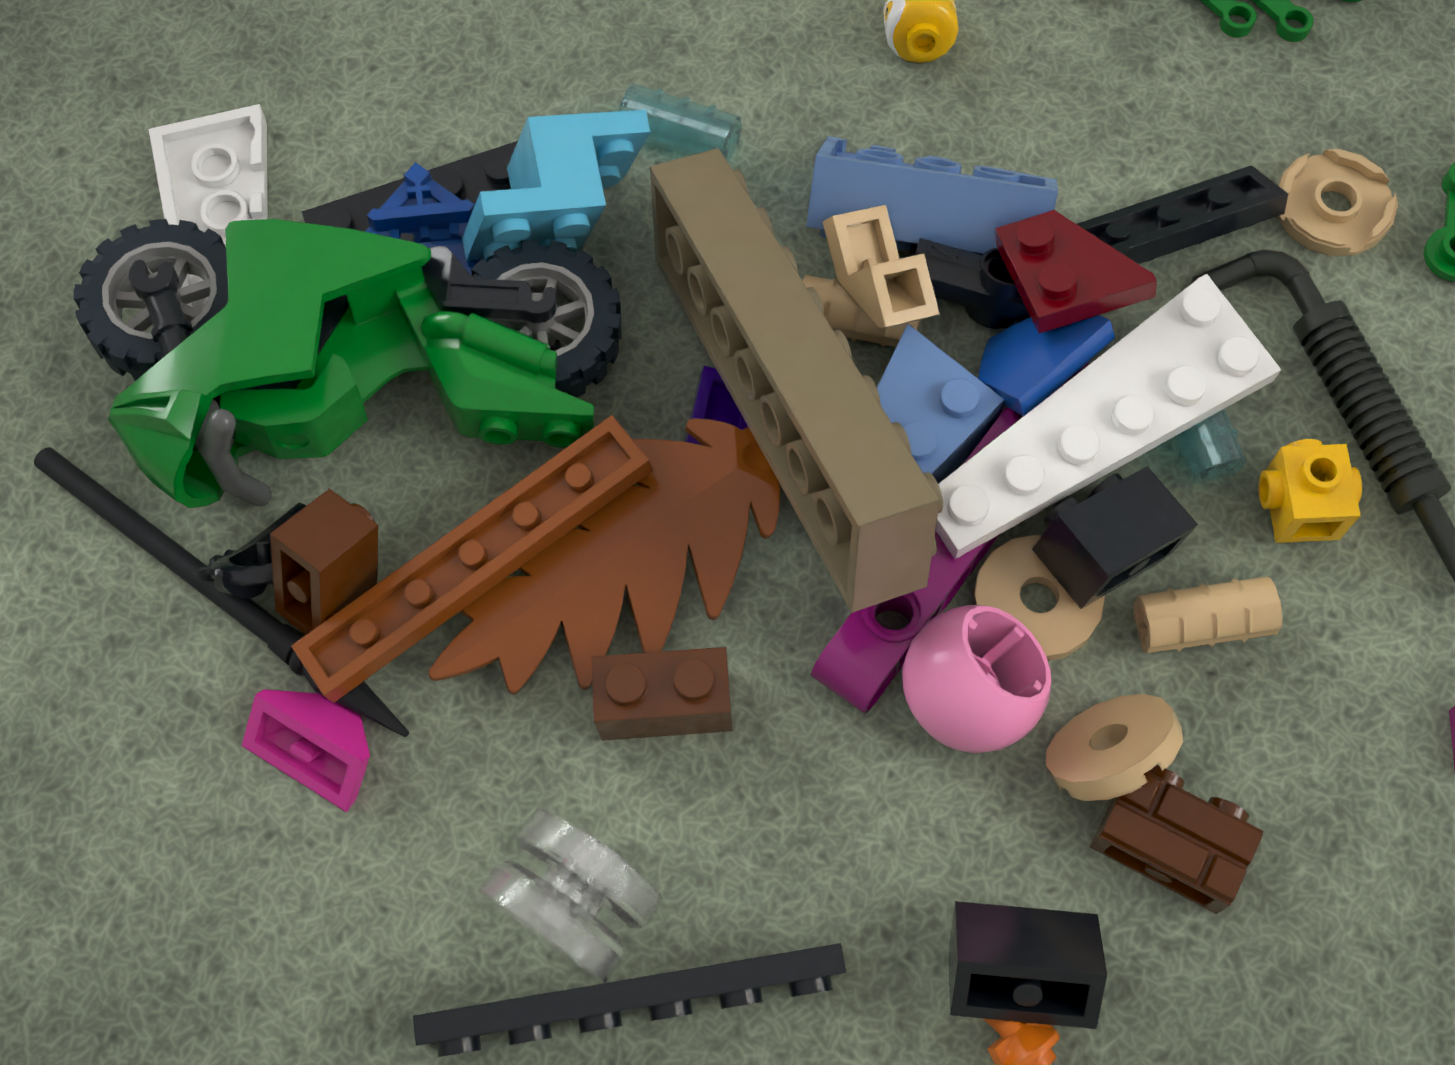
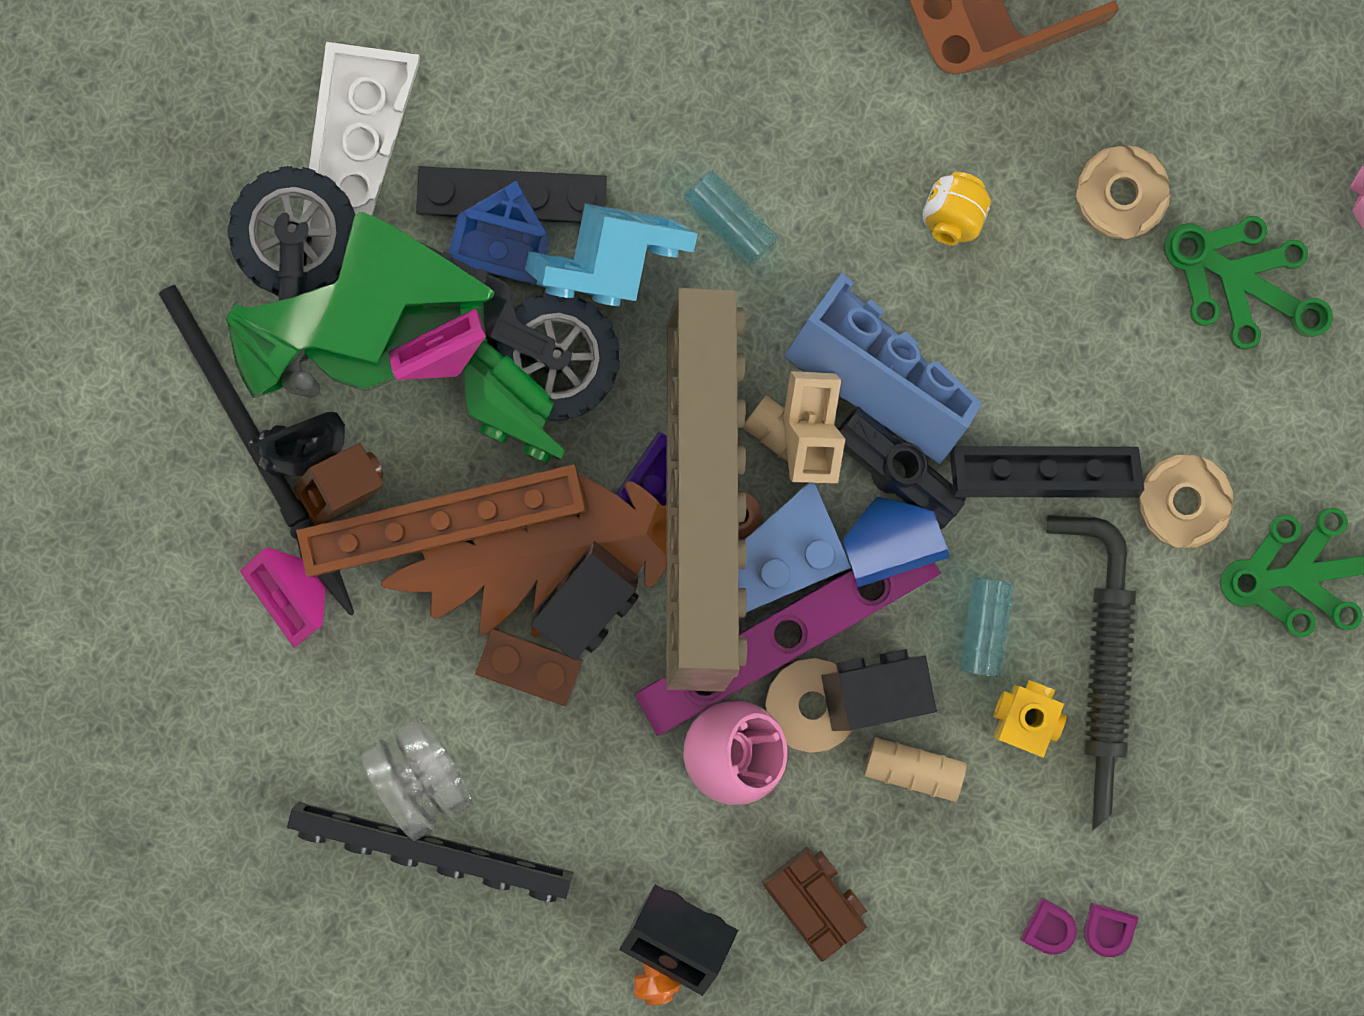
camera: 15 degrees right, 20 degrees up
(394, 337) = (439, 351): none -> dark pink slope
(699, 573) = (586, 601): none -> black brick
(1068, 271) = (939, 495): dark red wing -> none
(1113, 746) = (800, 813): tan tile -> none
(1135, 396) = (950, 603): white wing -> none

